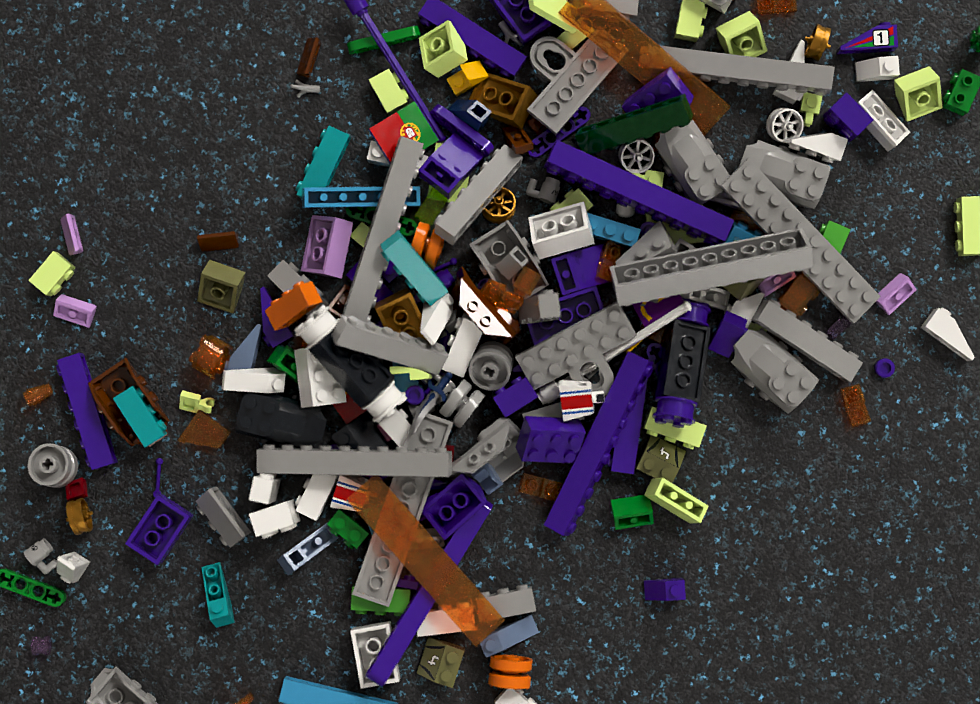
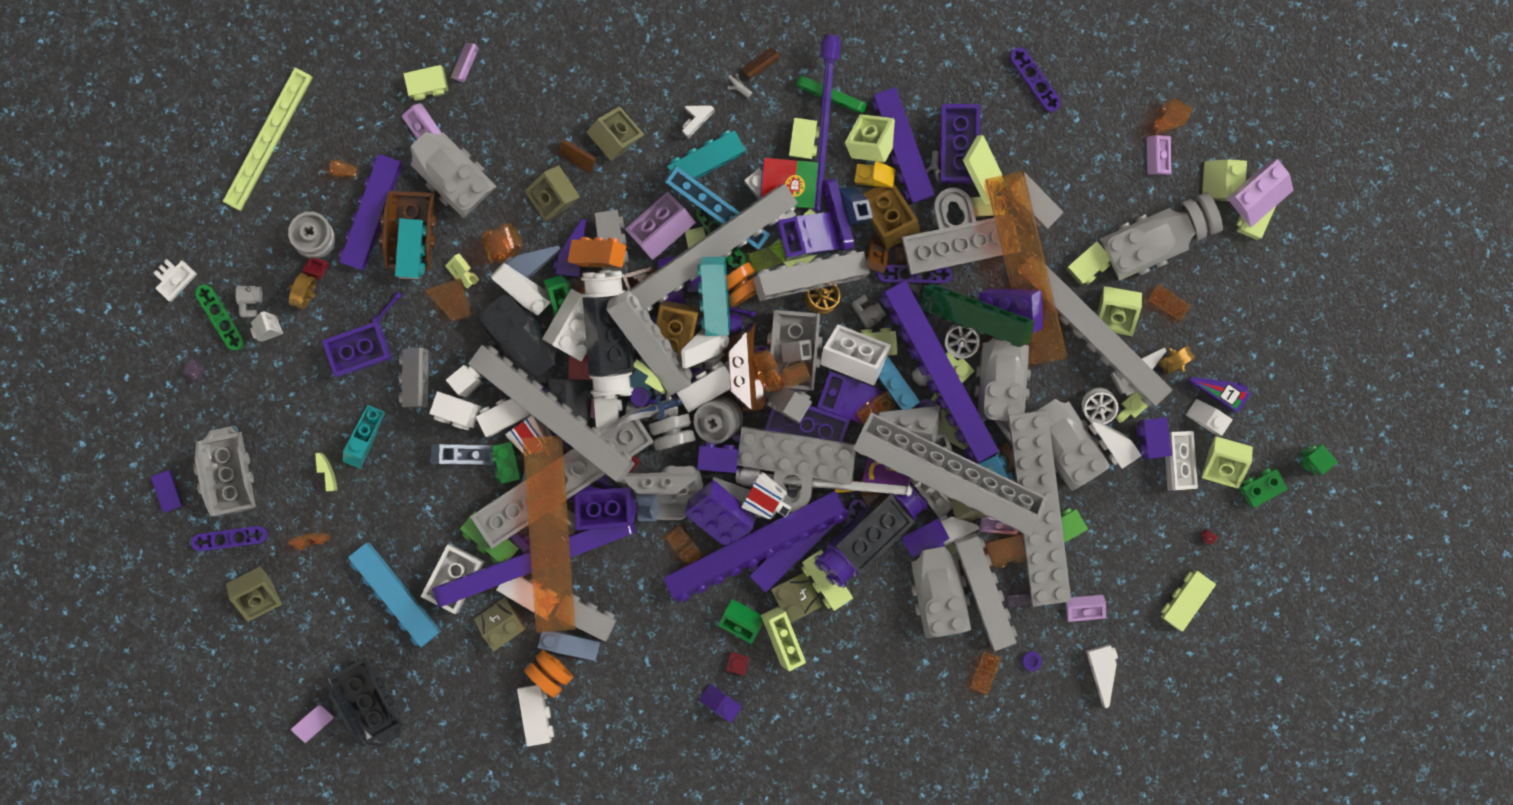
camera: 35 degrees right, 0 degrees up
(126, 330) = (450, 172): none -> light grey slope
(203, 642) = (324, 466): none -> yellowish green slope
(234, 200) = (615, 133): none -> olive slope
(292, 134) = (700, 115): none -> white slope
(653, 547) = (737, 663): none -> dark red plate
(948, 163) = (1208, 537): none -> dark red plate

